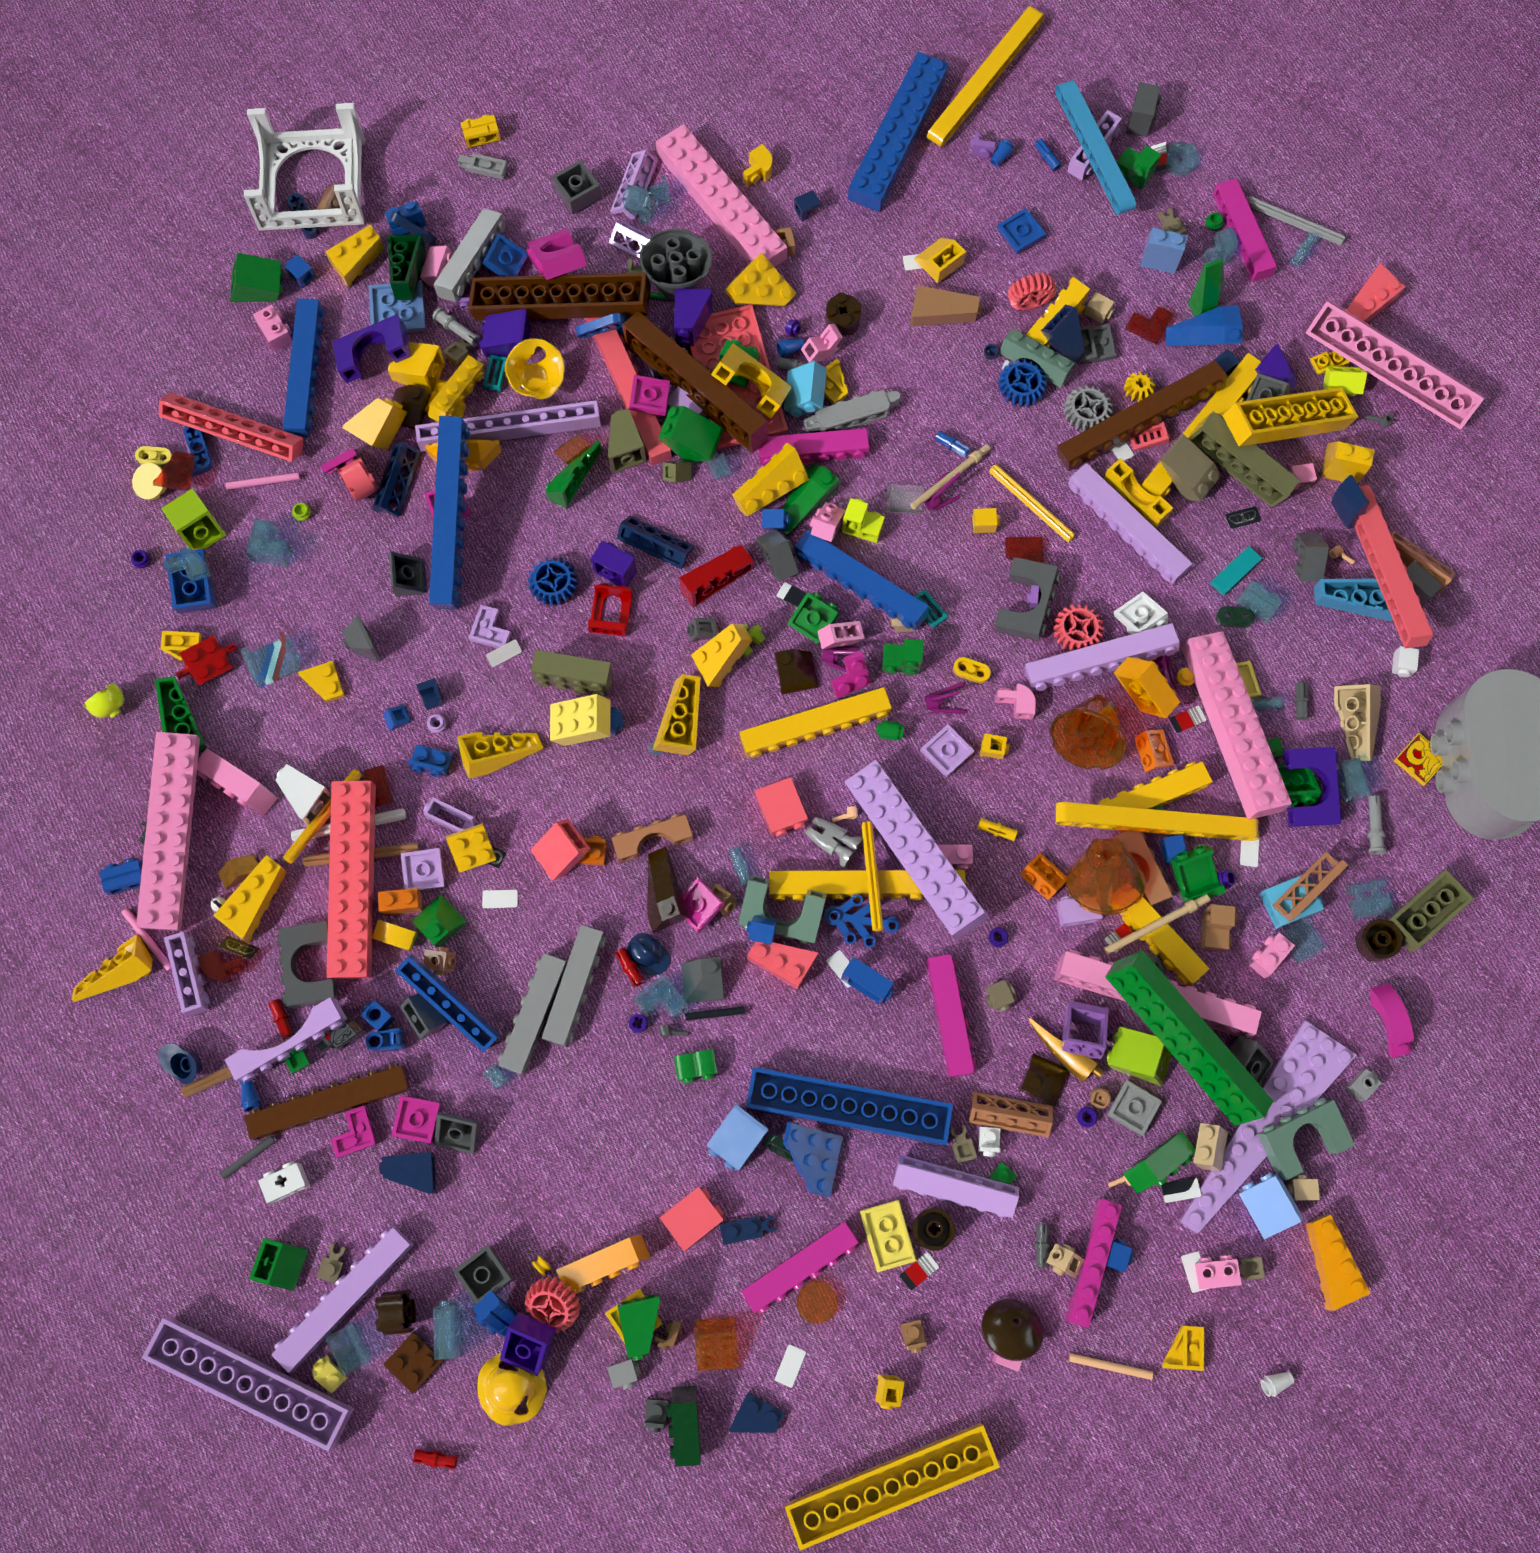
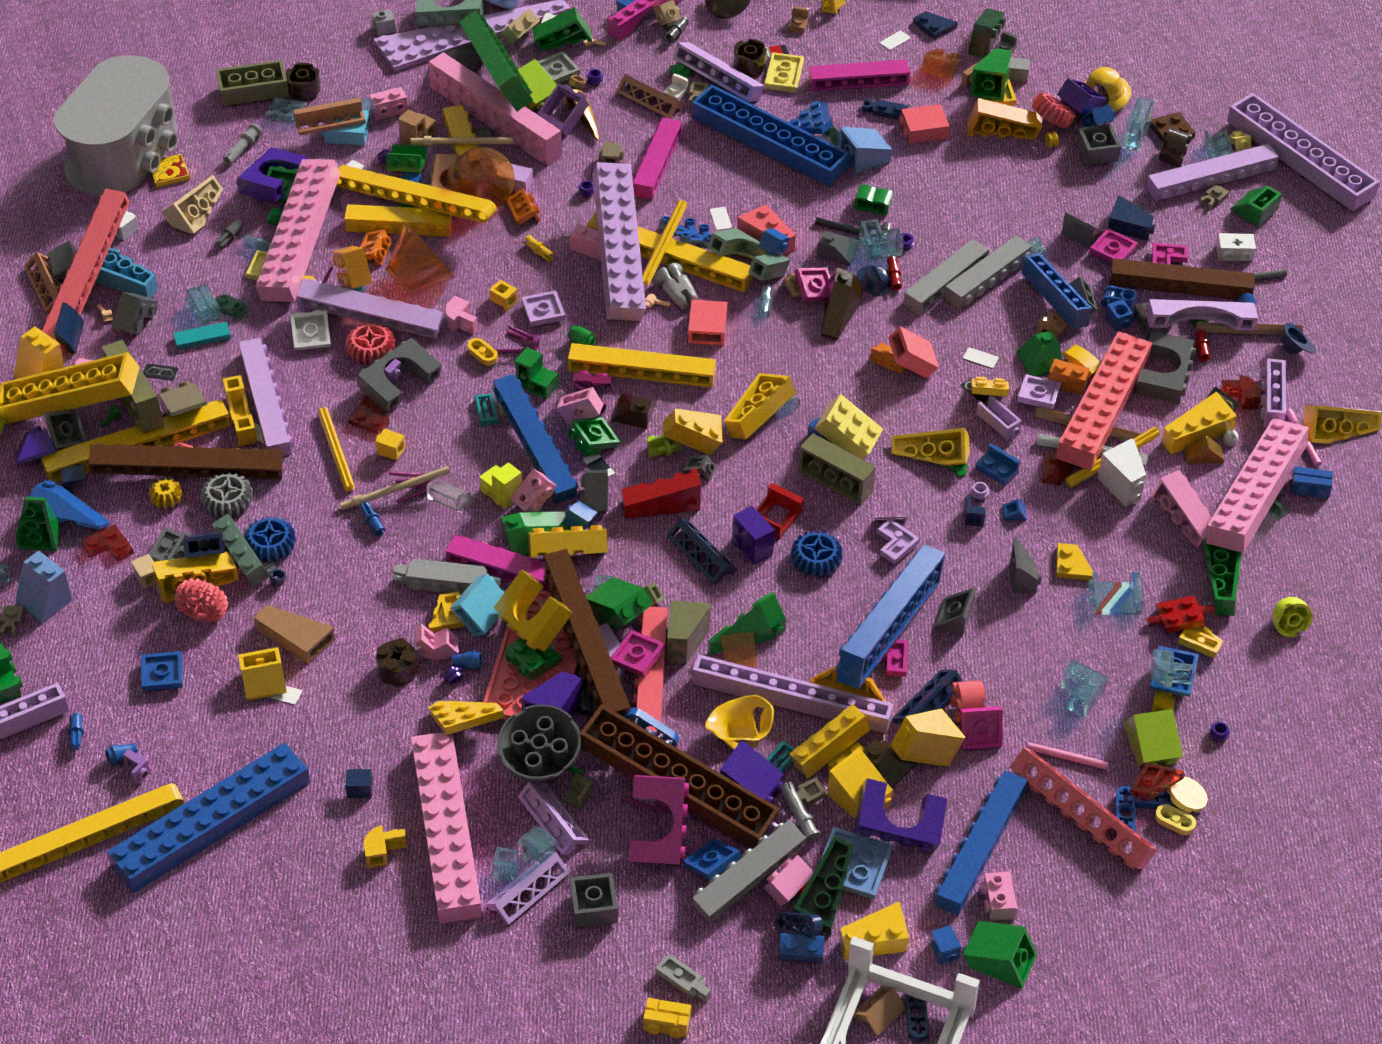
camera: 155 degrees left, 25 degrees down
(301, 511) = (1038, 710): lime plate -> none
(435, 1459) = (1167, 73): red pin -> none
(675, 830) = (809, 341): nougat arch -> none
(787, 237) = (402, 758): medium nougat bracket -> none
(788, 364) = (473, 641): dark grey pin -> none
(816, 1302) = (856, 55): clear orange tile -> none
(867, 981) = (708, 190): blue window -> none
(1043, 1080) = (614, 105): dark brown slope -> none
(1095, 147) = (34, 690): dark azure beam -> none
(1187, 719) = (322, 261): sticker -> none
(1353, 780) = (235, 167): clear light blue brick -> none
(1395, 1018) = (331, 40): dark pink arch -> none

